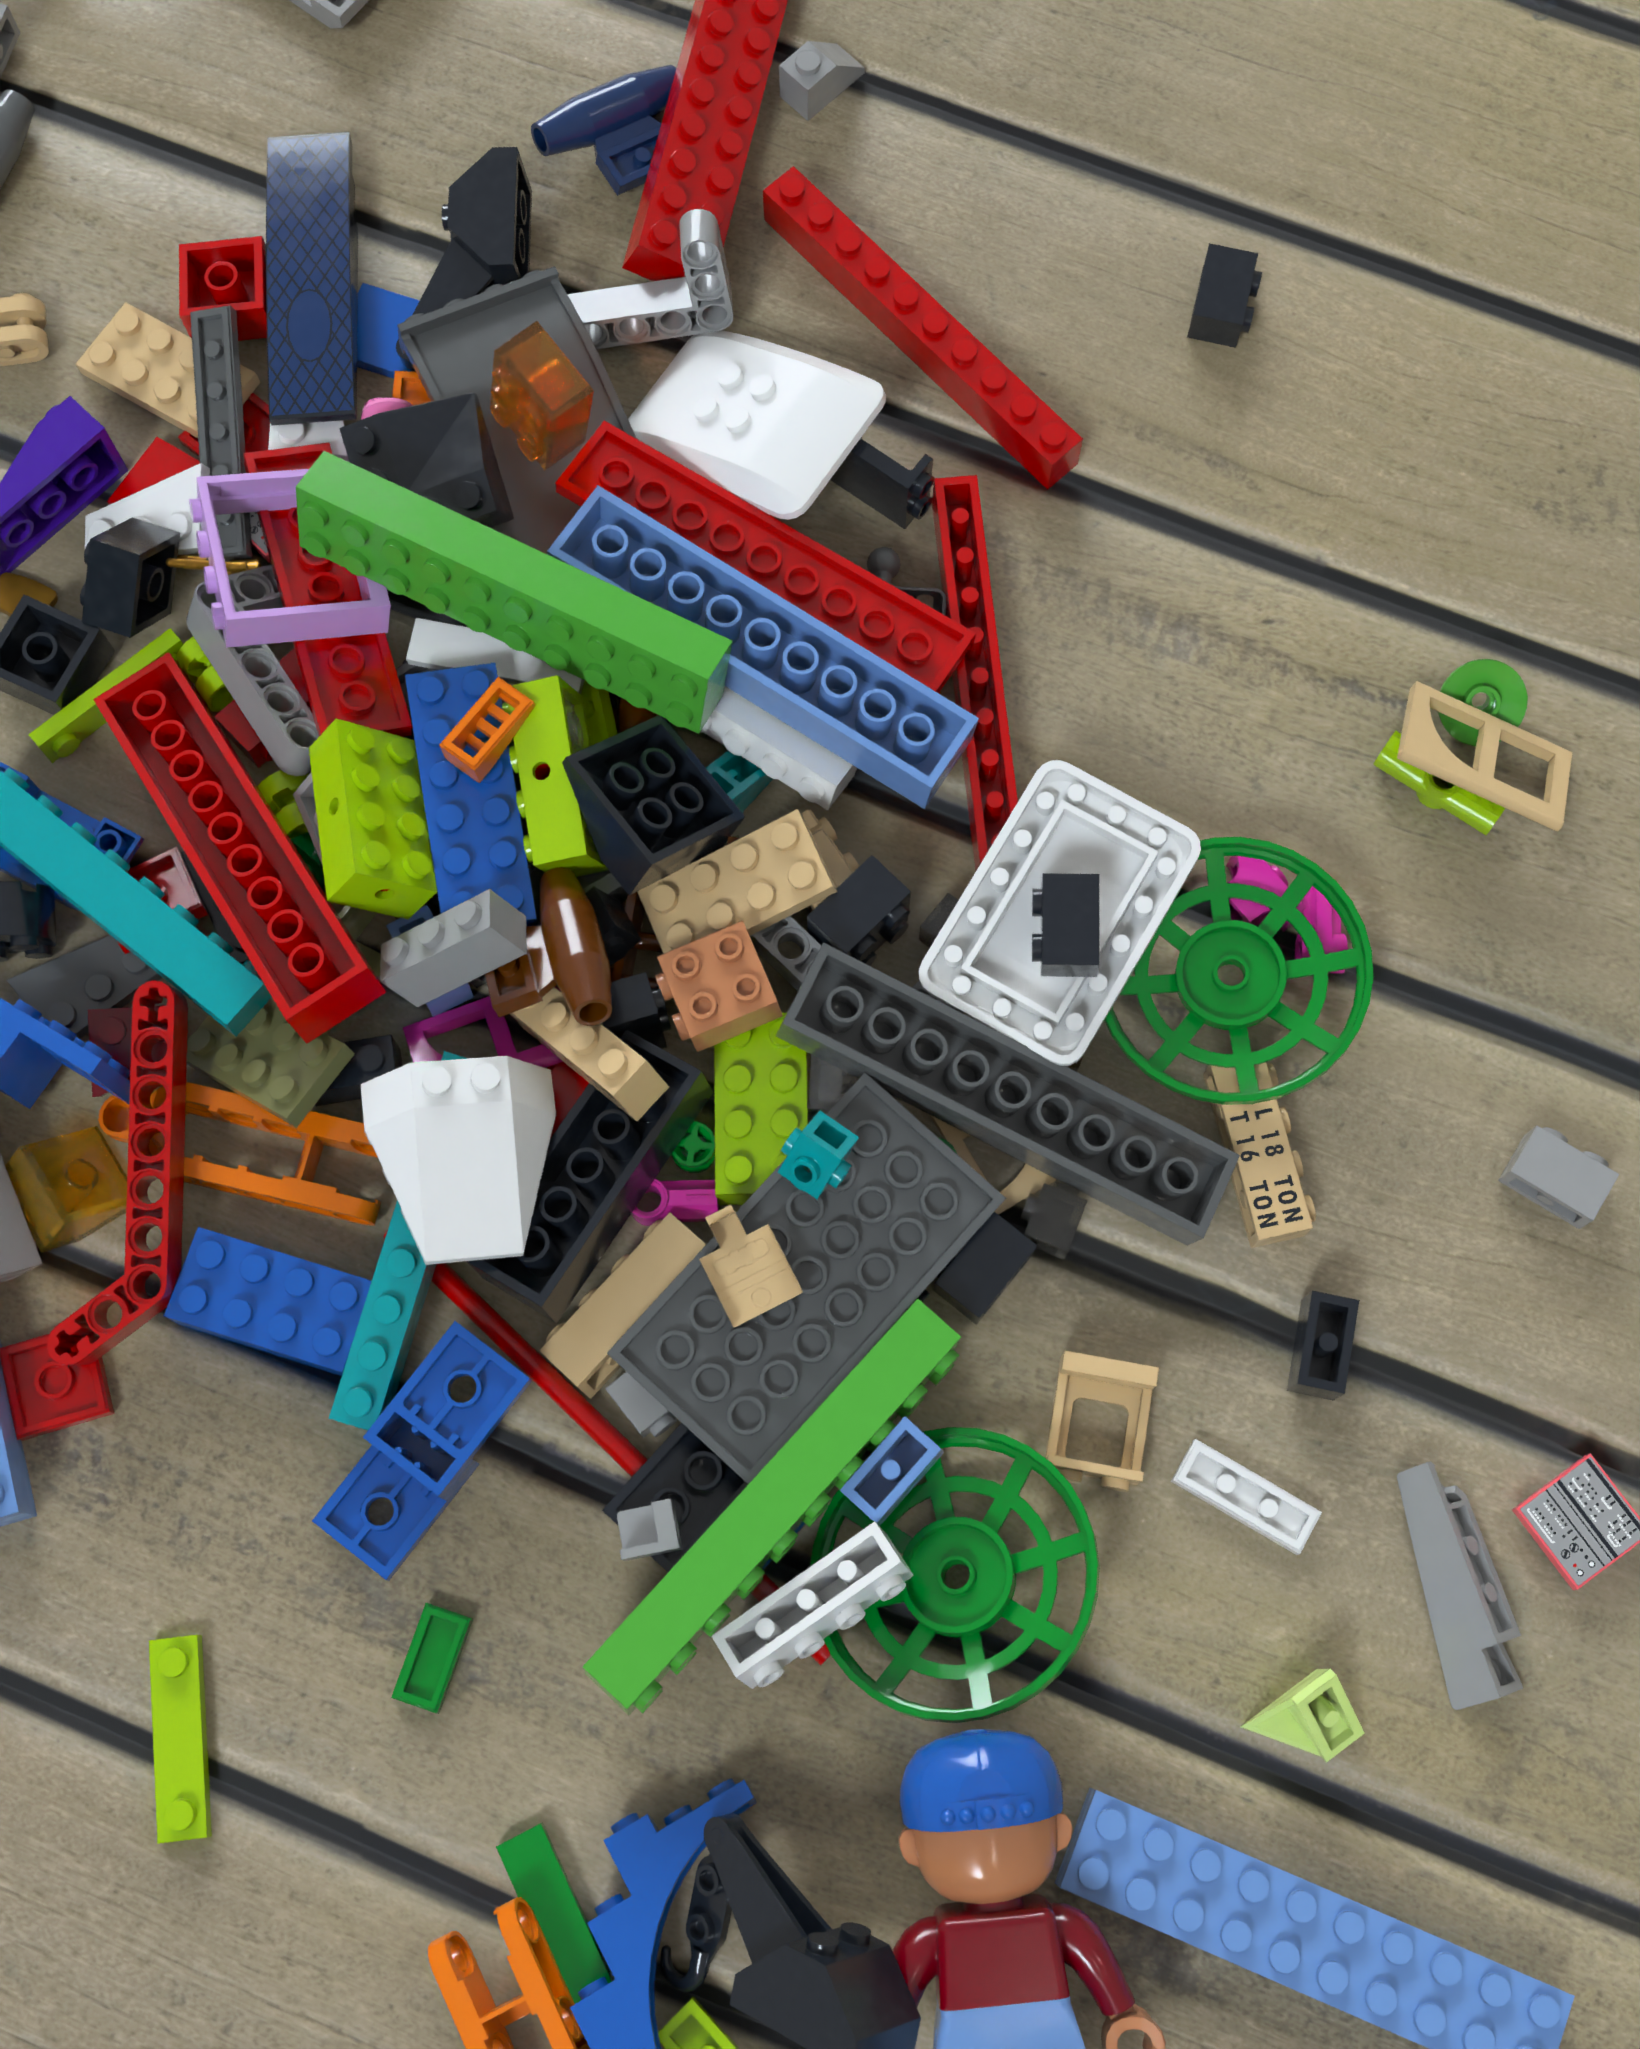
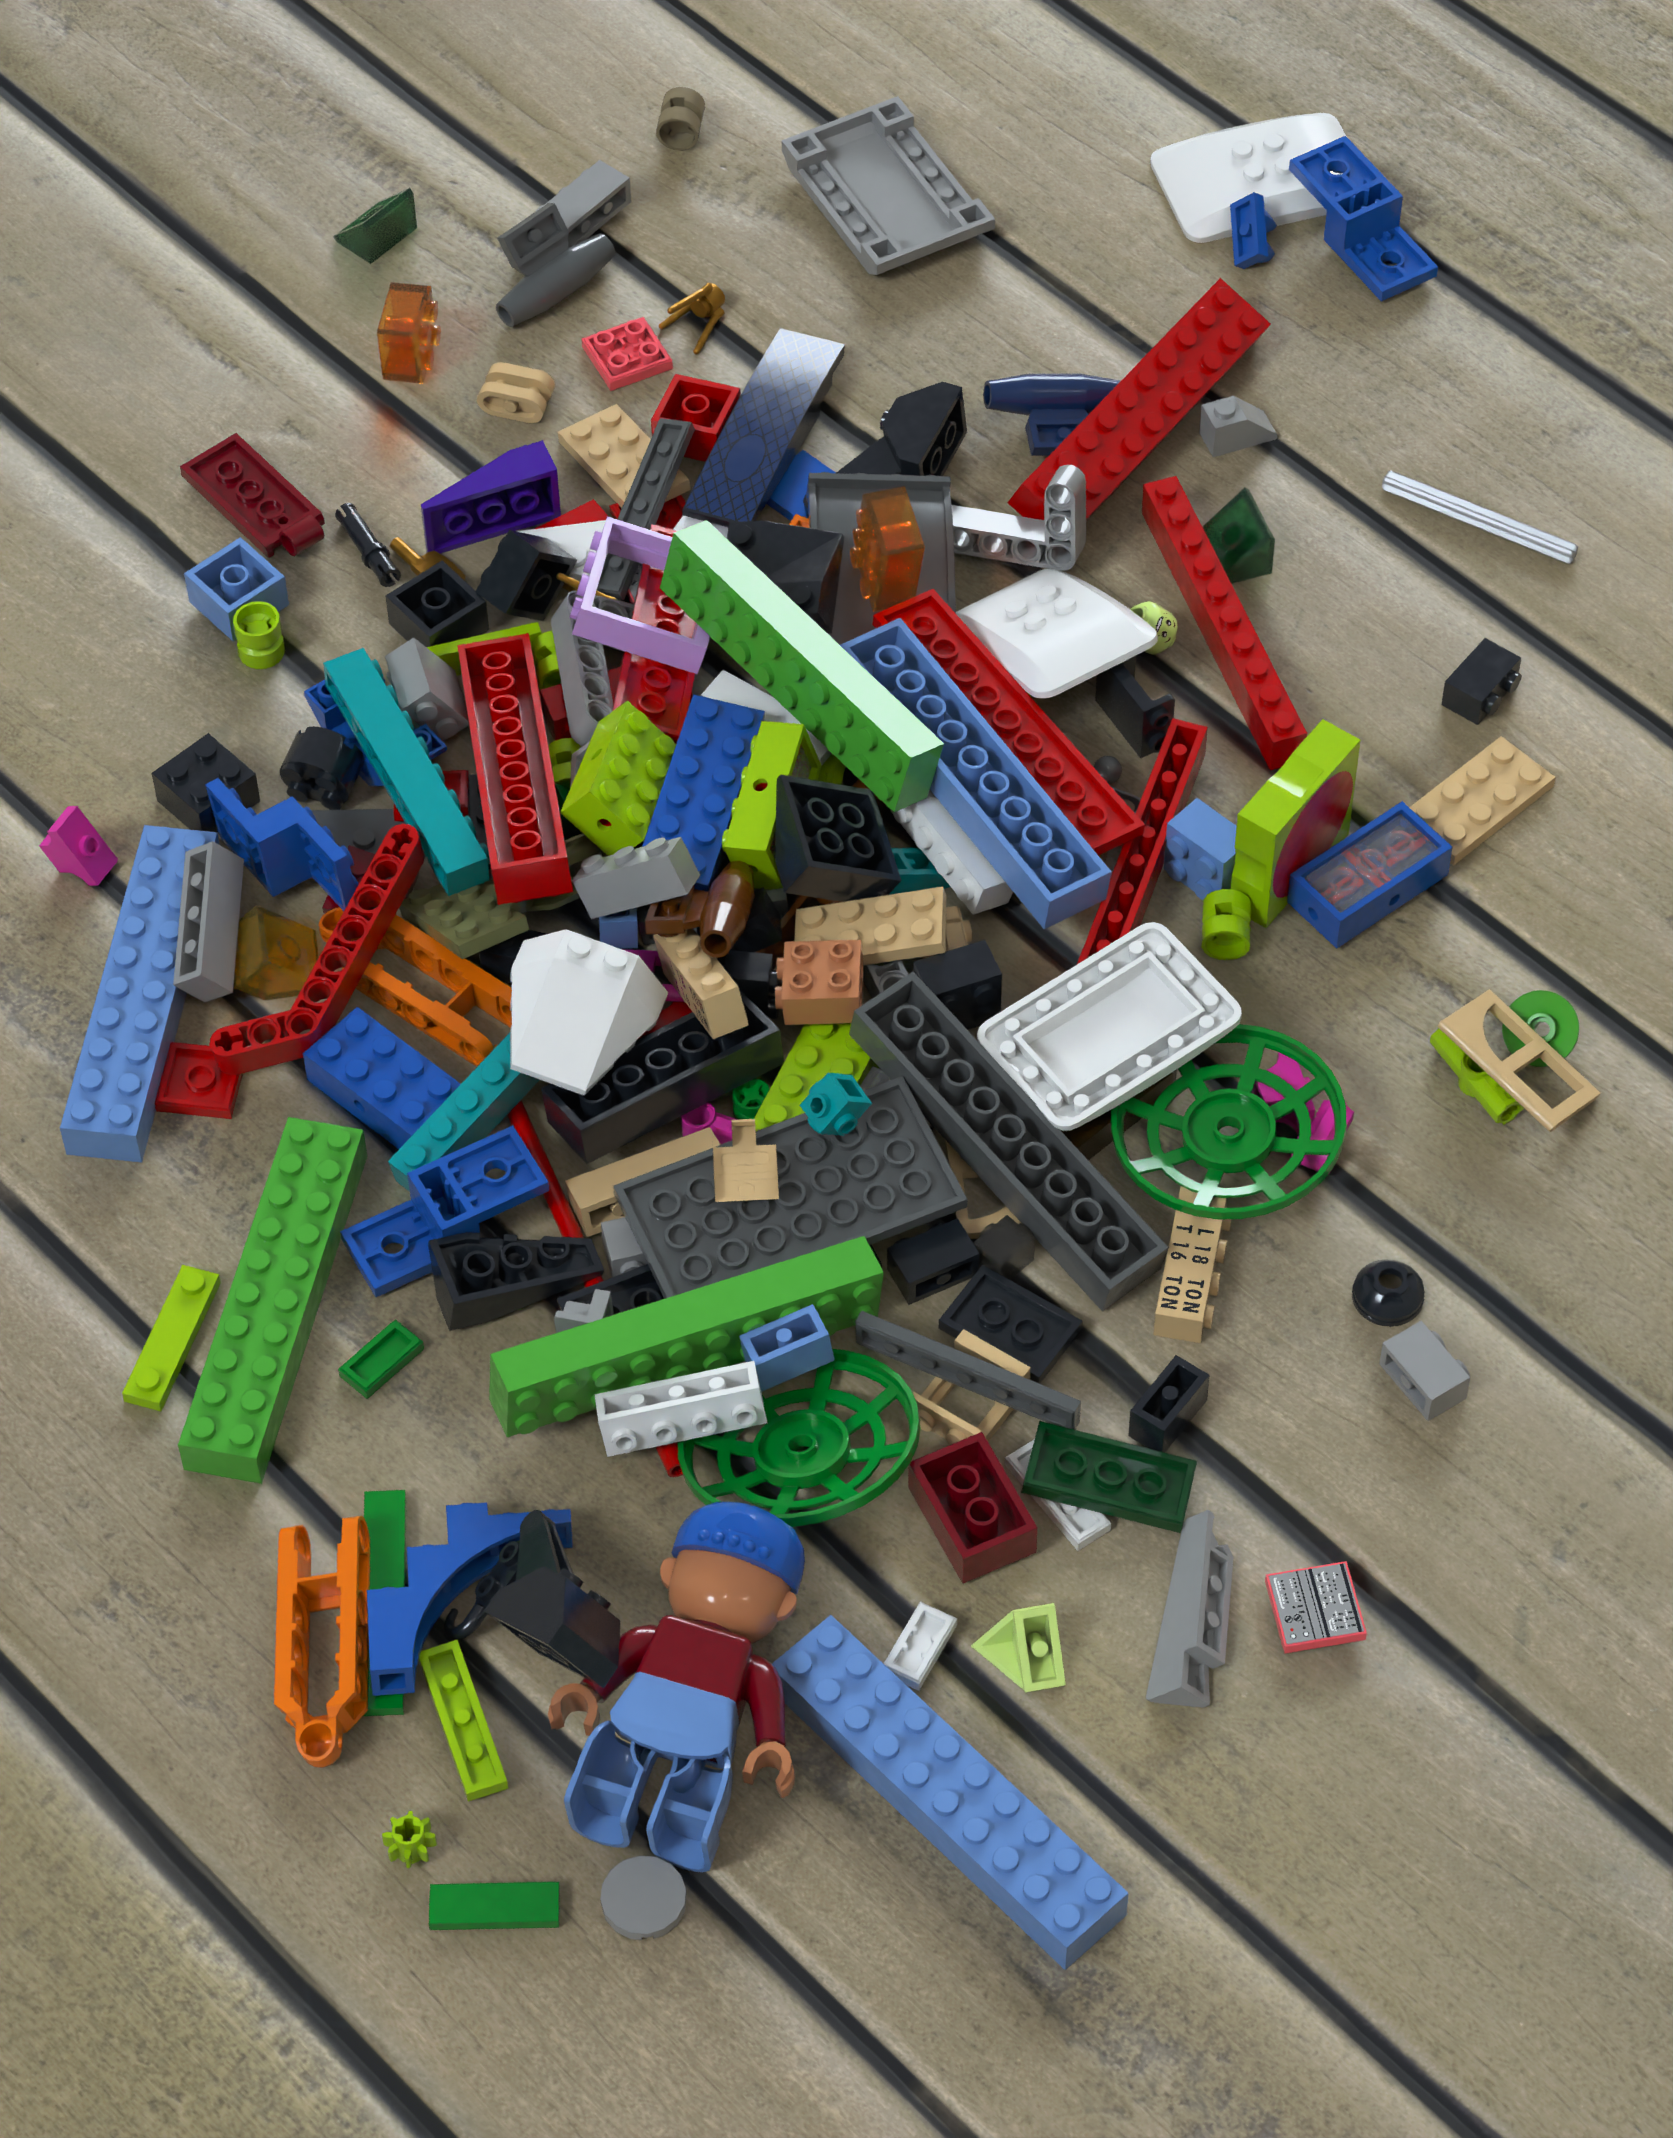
camera: 25 degrees right, 20 degrees down
(83, 770) = (427, 689): none -> light grey brick
(106, 231) = (627, 353): none -> coral tile
(165, 135) = (703, 303): none -> pearl gold plant
(277, 1647) = (273, 1301): none -> bright green brick
(489, 752) = (727, 758): orange slope -> none
(515, 1504) = (496, 1276): none -> black wedge
(853, 355) = (1161, 621): none -> yellowish green head
(894, 213) = (1241, 538): none -> clear green slope
(1046, 631) = (1200, 849): none -> medium blue brick
(1068, 925) = (1106, 1027): black brick -> none
(1093, 1401) = (967, 1371): none -> dark grey tile
(1099, 706) = (1226, 924): none -> lime wheel
(1102, 1309) = (1012, 1321): none -> black plate
(1123, 90) = (1480, 517): none -> axle
(1137, 564) = (1295, 818): none -> lime tile
(1178, 1571) = (972, 1507): none -> dark red brick
(1193, 1763) = (920, 1645): none -> white plate
(1222, 586) = (1369, 874): none -> brick
(1281, 442) = (1483, 796): none -> tan plate
(1295, 1457) = (1109, 1477): none -> dark green tile
(1459, 1108) = (1387, 1305): none -> black piece

